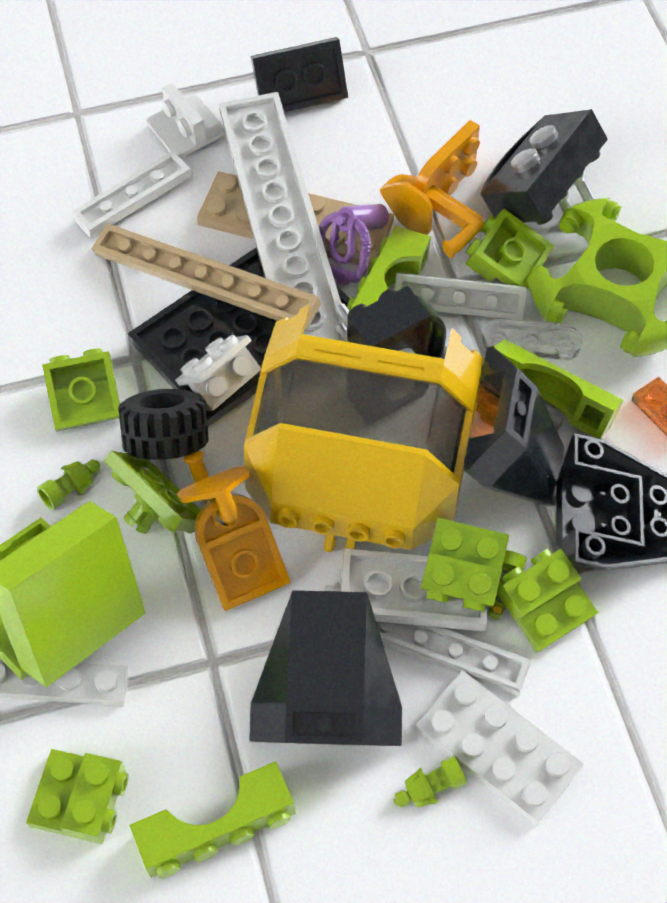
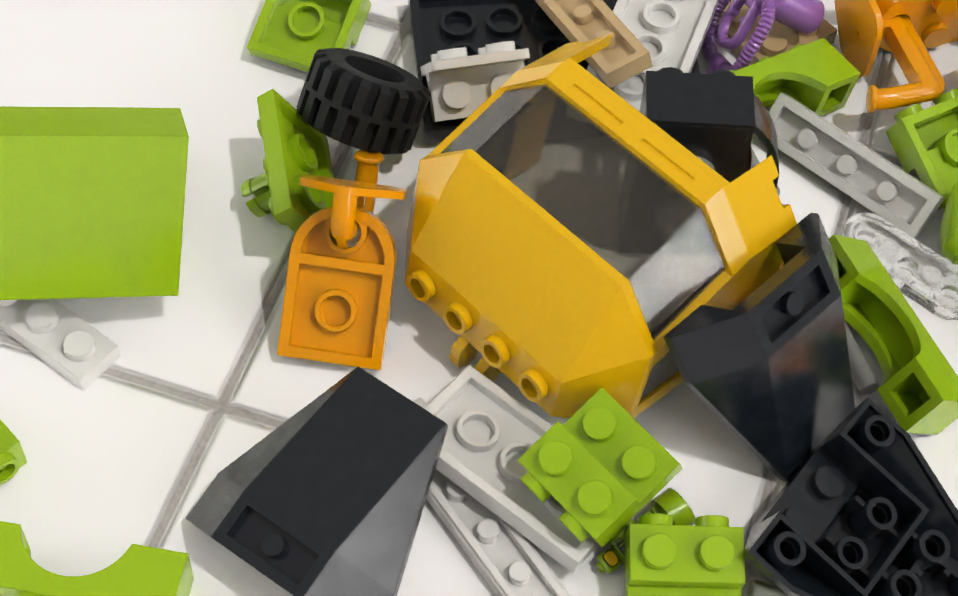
camera: 30 degrees right, 5 degrees down
(75, 477) = (228, 112): lime piece -> none

